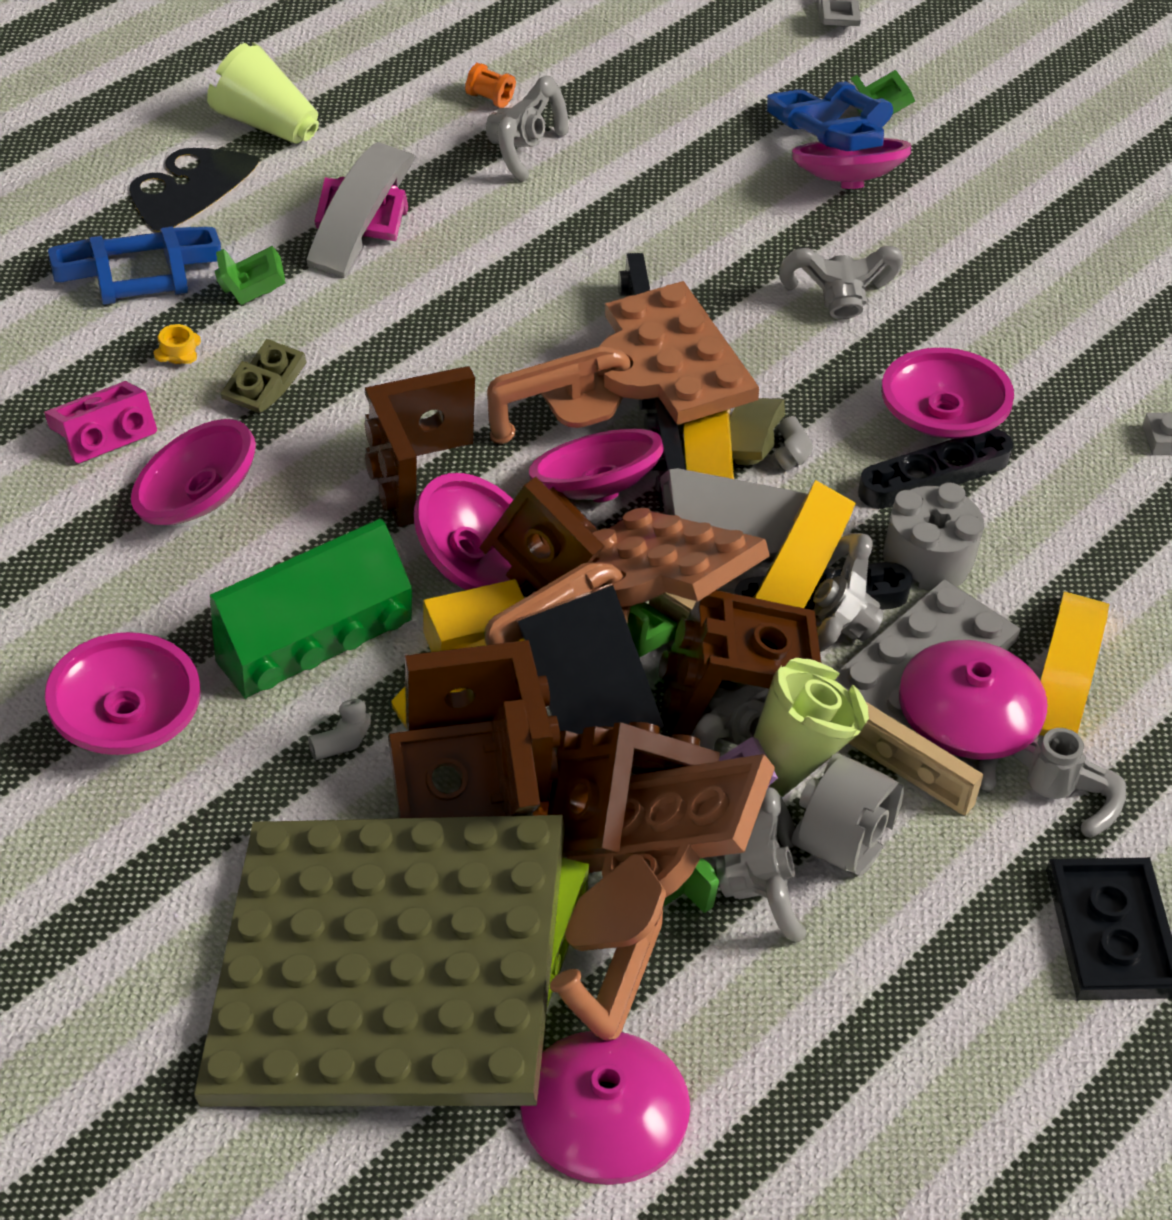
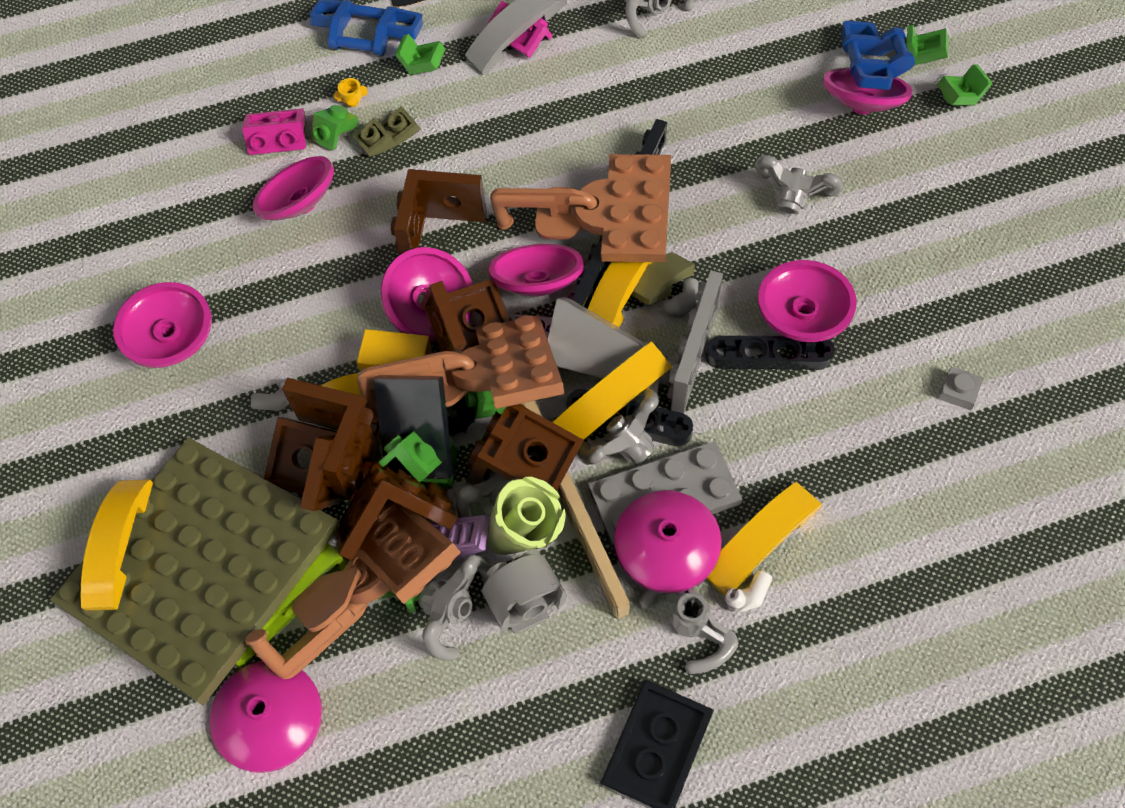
camera: 35 degrees right, 15 degrees up
(181, 392) = (329, 124): none -> bright green bracket
(260, 977) = (107, 542): none -> yellow slope
(310, 608) = (298, 309): green slope -> none
(623, 700) = (414, 454): none -> bright green bracket
(854, 467) = (693, 345): none -> light grey plate
(934, 534) = (725, 406): light grey brick -> none
(958, 127) = (965, 89): none -> bright green bracket
(1103, 726) = (751, 597): none -> white arm

